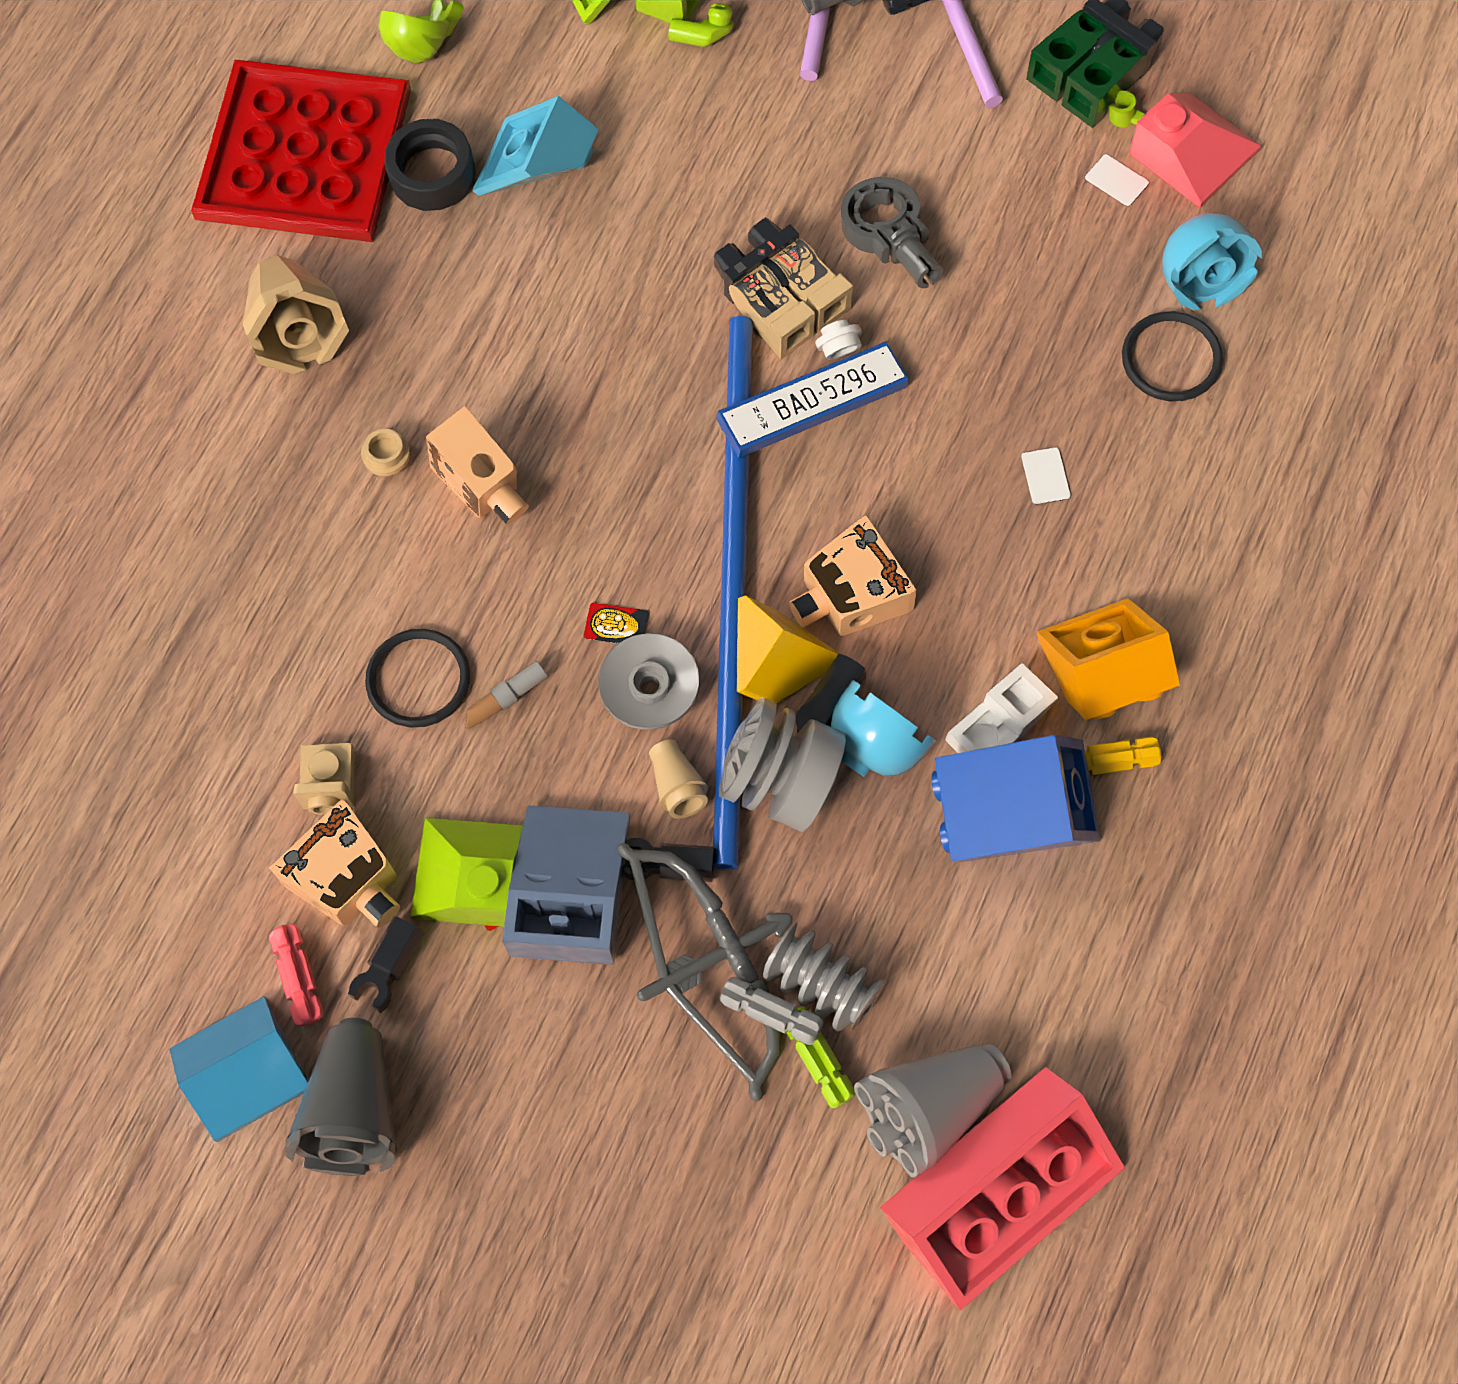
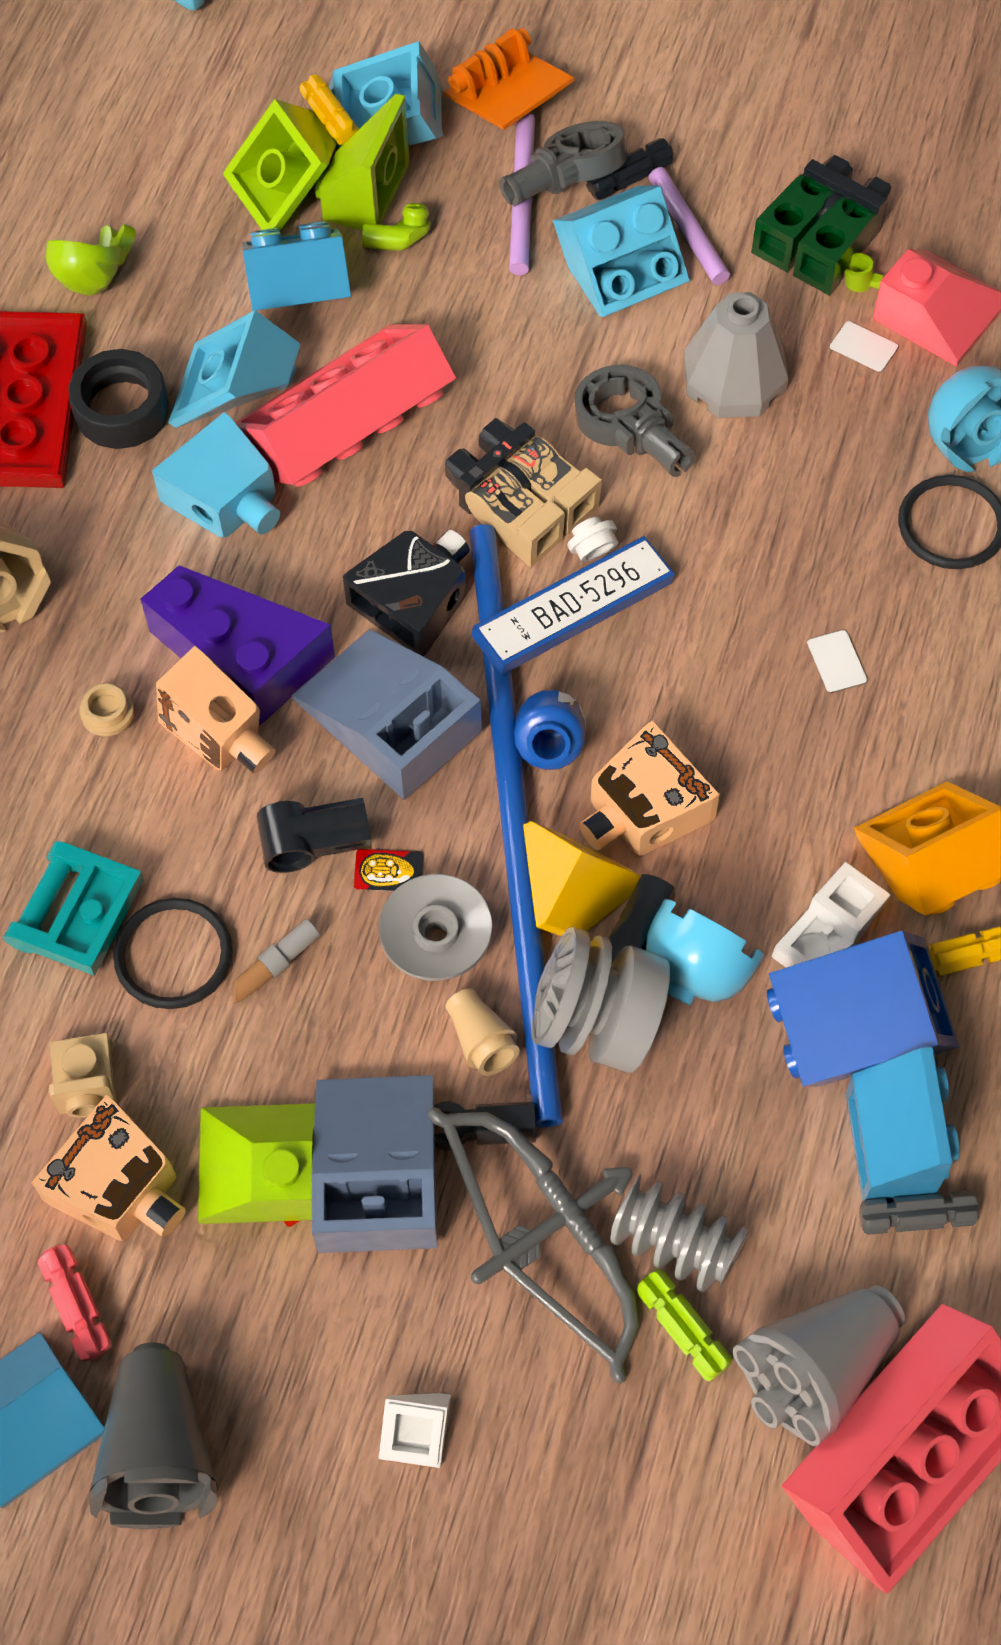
camera: 10 degrees left, 5 degrees down
(347, 636) = (87, 917): none -> teal plate
(388, 961) = (179, 1274): black bar -> none
(510, 251) = (219, 481): none -> medium azure torso
(513, 401) = (249, 638): none -> dark purple wedge
(537, 583) = (297, 834): none -> black piece
(574, 1118) = (415, 1428): none -> white slope
(603, 54) = (295, 266): none -> dark azure slope
(632, 189) = (348, 401): none -> coral slope
(636, 480) = (392, 710): none -> sand blue slope
(668, 368) = (410, 587): none -> black torso
(771, 1010) = (626, 1277): light grey axle -> none
(774, 513) = (550, 730): none -> blue head
(905, 66) = (622, 249): none -> medium azure slope
(995, 183) = (736, 358): none -> light grey cone
(1031, 909) = (901, 1126): none -> dark azure slope
(1040, 984) = (919, 1212): none -> dark grey axle

